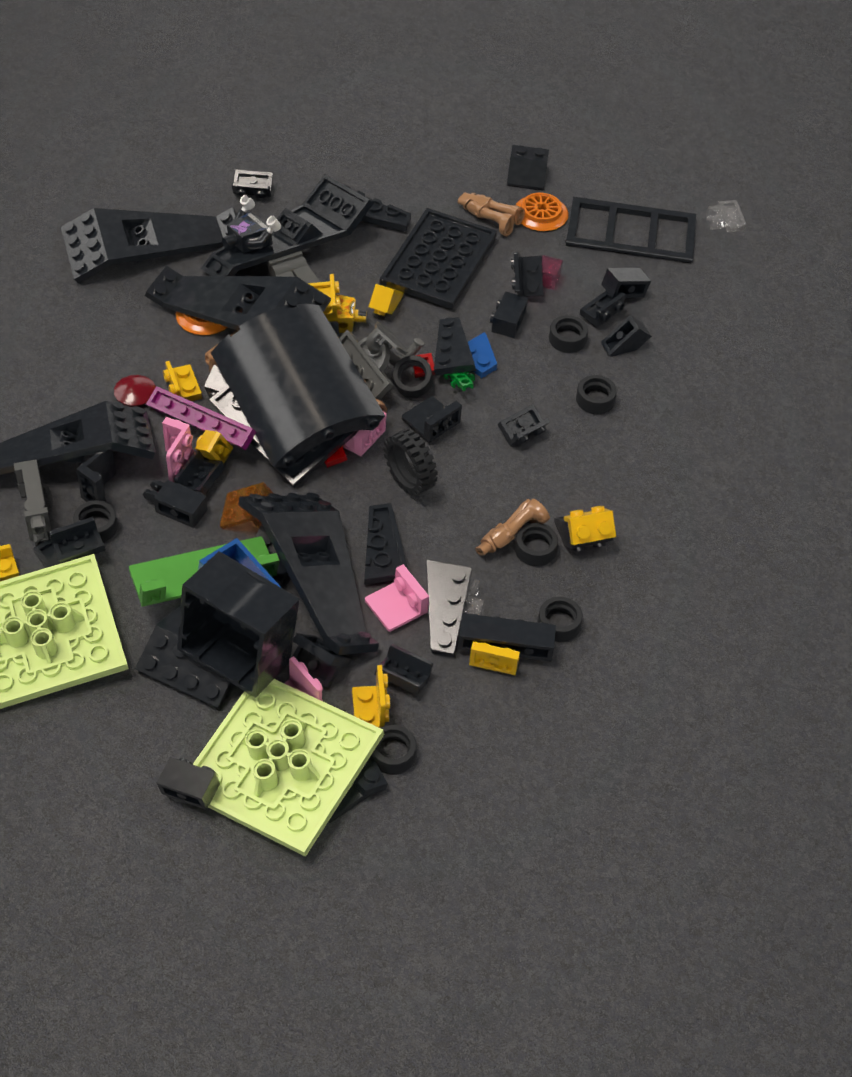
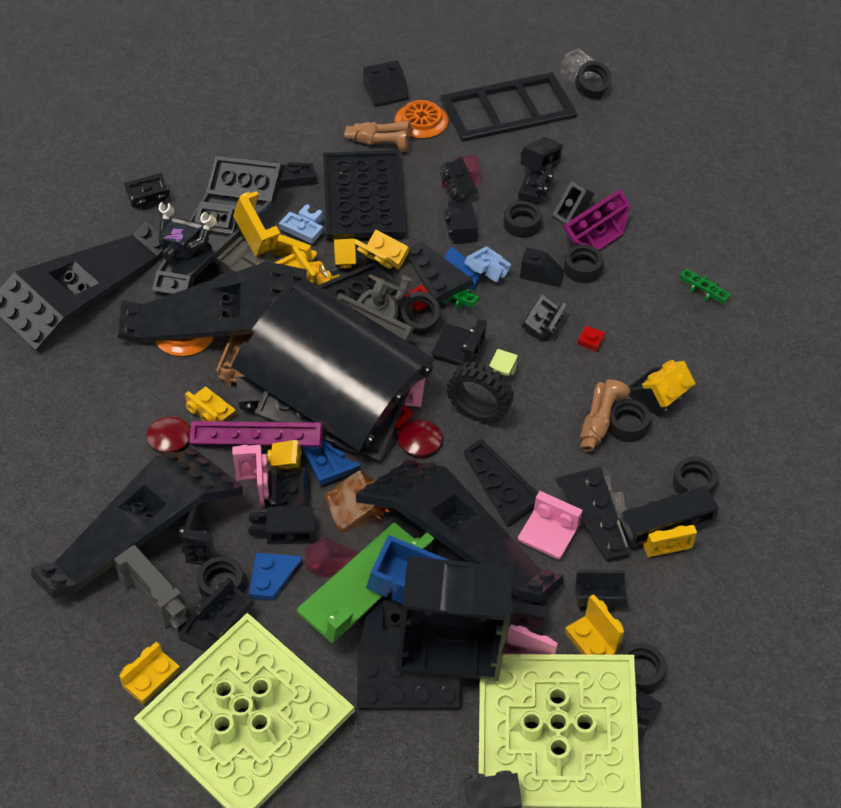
camera: 25 degrees left, 0 degrees up
(139, 536) = (271, 574): none -> blue wing
(190, 538) = (327, 557): none -> clear pink slope
(248, 467) = (329, 463): none -> blue wing
(312, 259) = (258, 238): none -> yellow panel
(341, 481) = (420, 438): none -> dark red dish
(346, 283) = (284, 248): none -> yellow bracket
(363, 326) = (357, 281): none -> black wing
(367, 265) = (304, 226): none -> light blue plate
(419, 311) = (384, 250): none -> yellow bracket
(454, 449) = (504, 362): none -> yellowish green panel
(507, 357) = (488, 261): none -> light blue plate
(552, 382) = (540, 268): none -> black slope
(556, 462) = (591, 338): none -> red plate
(635, 364) = (600, 222): none -> magenta wedge
(694, 457) = (712, 290): none -> green piece
(731, 220) = (601, 70): none -> black tyre

